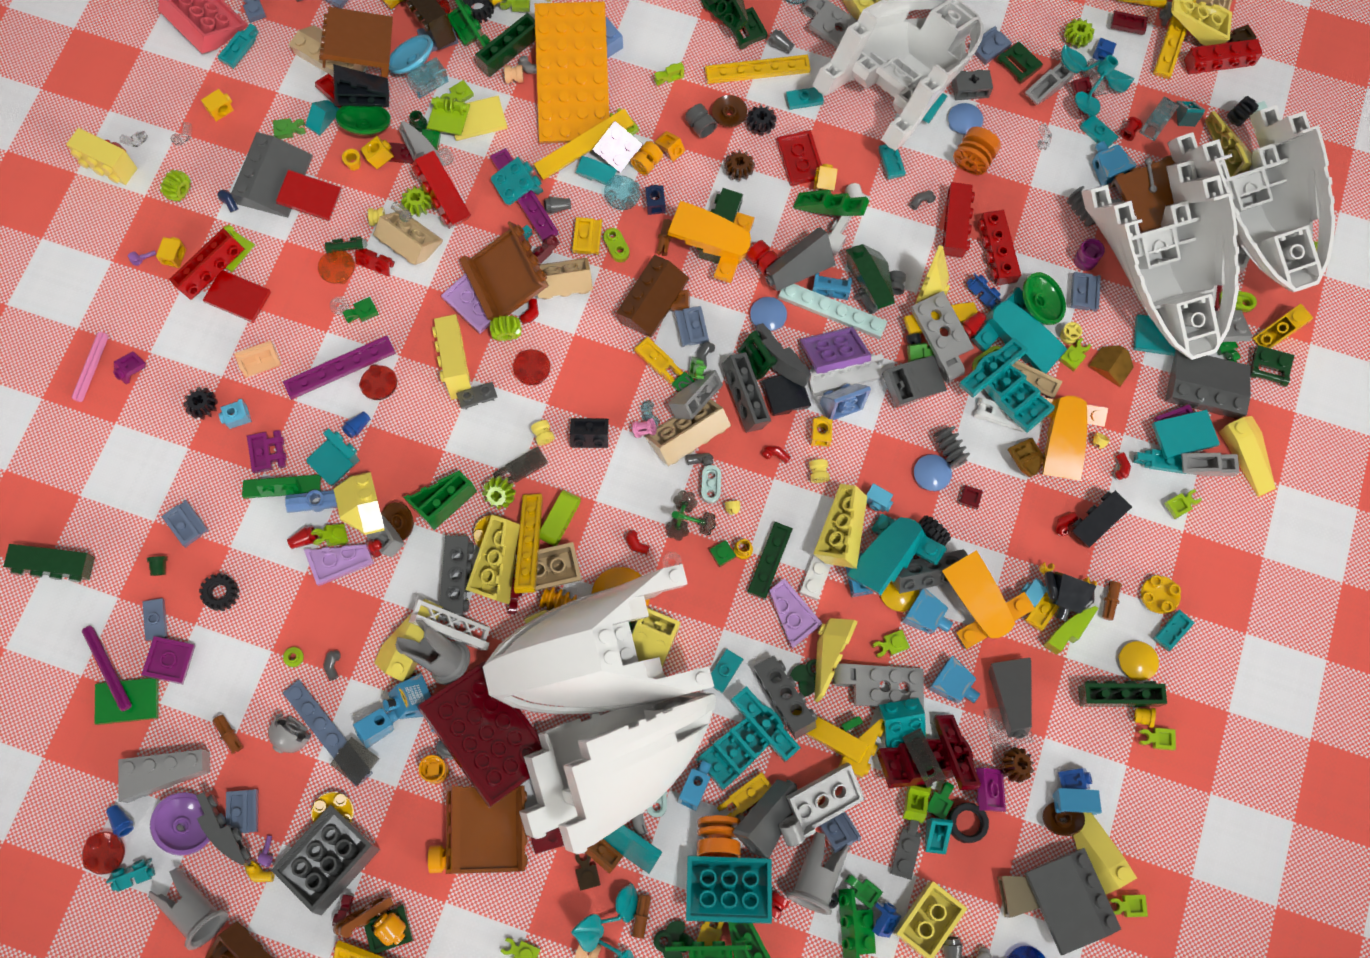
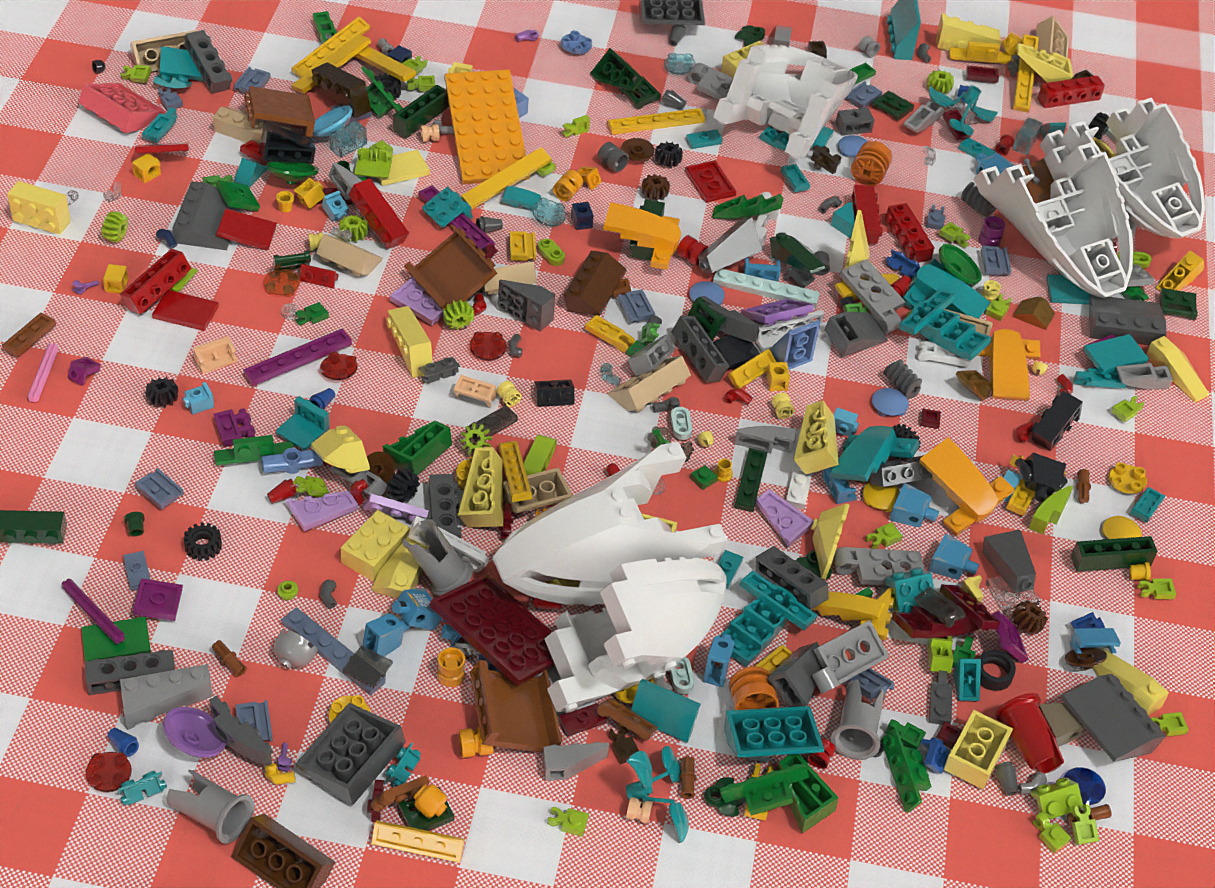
camera: 10 degrees left, 25 degrees down
(80, 318) = (29, 335): none -> dark orange plate
(101, 740) = (100, 681): none -> dark grey brick
(235, 79) = (168, 147): none -> red tile
(304, 150) = (237, 195): none -> green plate
(367, 882) = (406, 758): none -> teal hinge
(381, 613) = (373, 544): none -> light yellow brick
(398, 164) = (335, 206): none -> medium azure brick
(400, 570) = (393, 507): none -> lavender wing
(418, 545) = (403, 485): none -> black gear
(508, 428) = (475, 389): none -> light nougat hinge
(525, 889) = (568, 760): none -> light grey slope
(558, 375) = (513, 345): none -> dark grey arm
(579, 320) = (527, 303): none -> dark grey slope
(617, 146) = (538, 176): plate -> none
(644, 428) = (602, 383): bright pink bush -> none
(664, 238) = (596, 241): dark orange axle -> none
(793, 512) = (766, 438): none -> light grey slope
(796, 419) = (751, 369): none -> yellow tile
(825, 178) = (737, 187): yellow brick -> none
(881, 102) = (774, 138): none -> teal slope
(906, 893) = (949, 734): none -> dark red tile
(926, 138) = (824, 159): none -> dark brown hips
(932, 224) = (844, 220): none -> teal slope
(967, 729) = (971, 587): none -> light yellow bracket
(986, 912) = (1031, 732): none -> red piece
(993, 13) = (863, 71): none -> green plate
(1033, 226) = (936, 218): none -> sand blue plate
(1048, 249) = (953, 232): none -> lime plate

